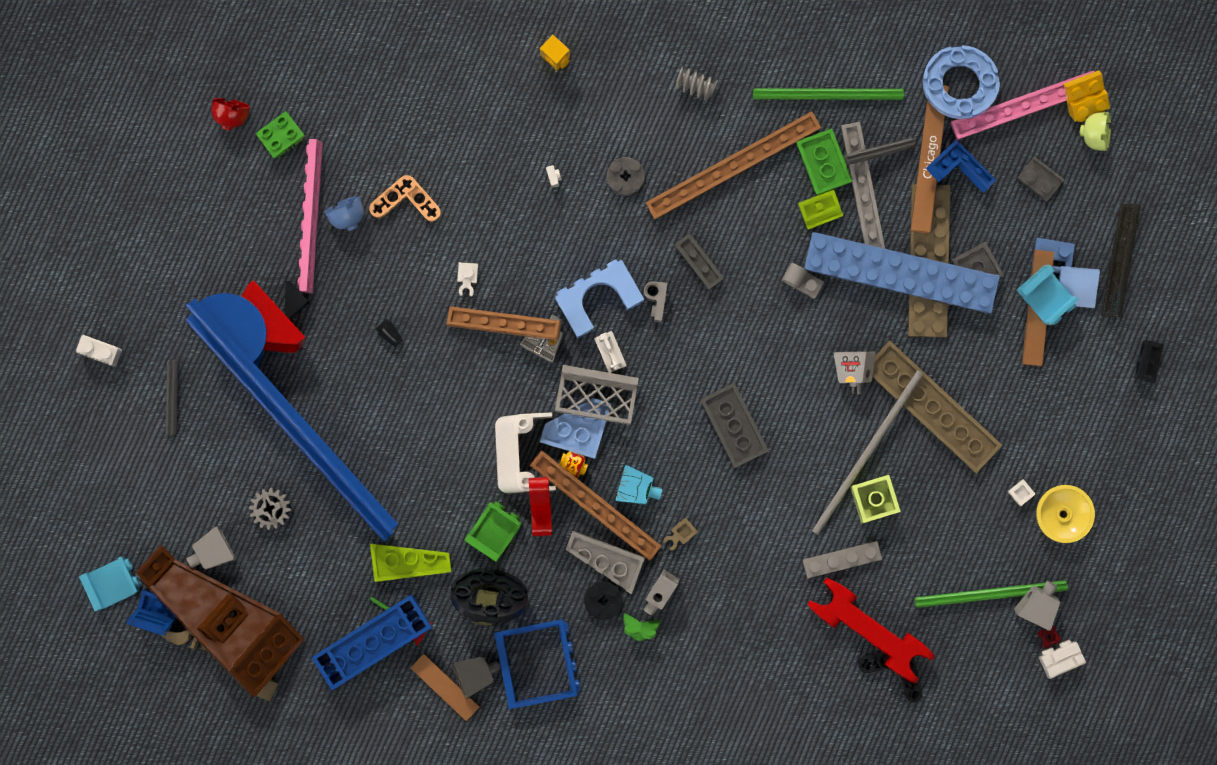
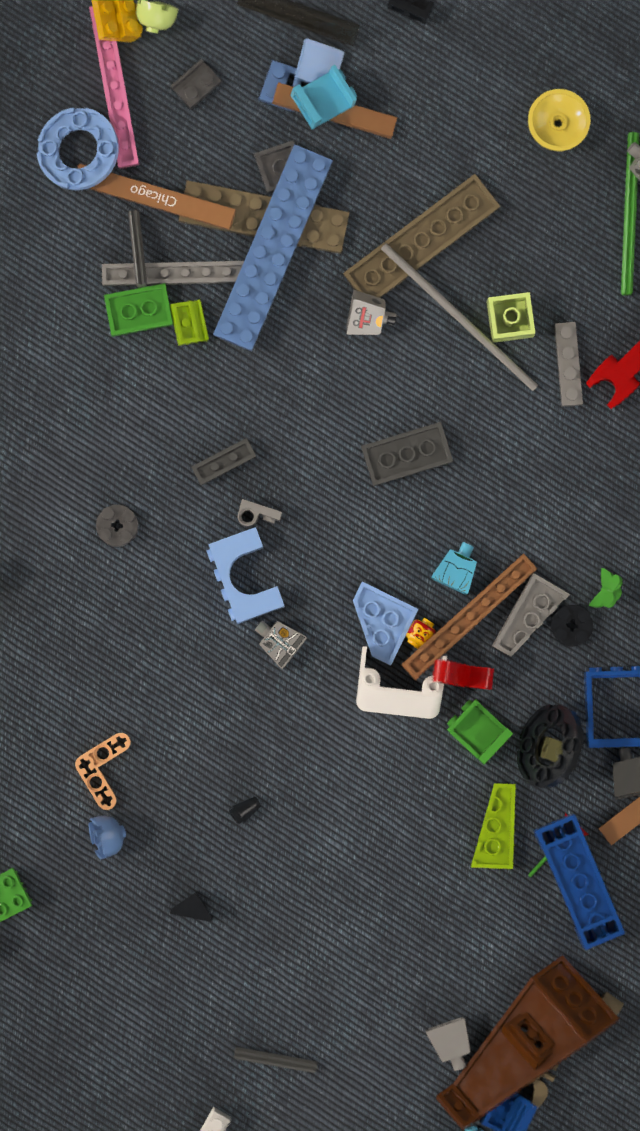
camera: 80 degrees left, 0 degrees up
(239, 334) = (221, 974): blue ladder -> none
(274, 520) = (416, 979): light grey gear -> none
(310, 210) = (109, 877): bright pink plate -> none
(467, 274) = (196, 714): white plate -> none
(504, 323) = (256, 683): medium nougat tile -> none
(554, 176) = (104, 602): white plate -> none
(601, 379) = (333, 589): light grey fence -> none
(610, 352) = (305, 573): white hinge -> none
(665, 586) = (567, 556): light grey torso -> none
(682, 531) = (512, 528): dark tan plate -> none
(695, 84) = (30, 432): light grey piece -> none
(733, 165) = (125, 408): medium nougat plate -> none
(802, 281) = (263, 355): light grey plate -> none
(828, 94) = (65, 293): bright green axle -> none
(958, 156) = (157, 166): blue plate -> none
(1021, 492) = (528, 163): white plate -> none

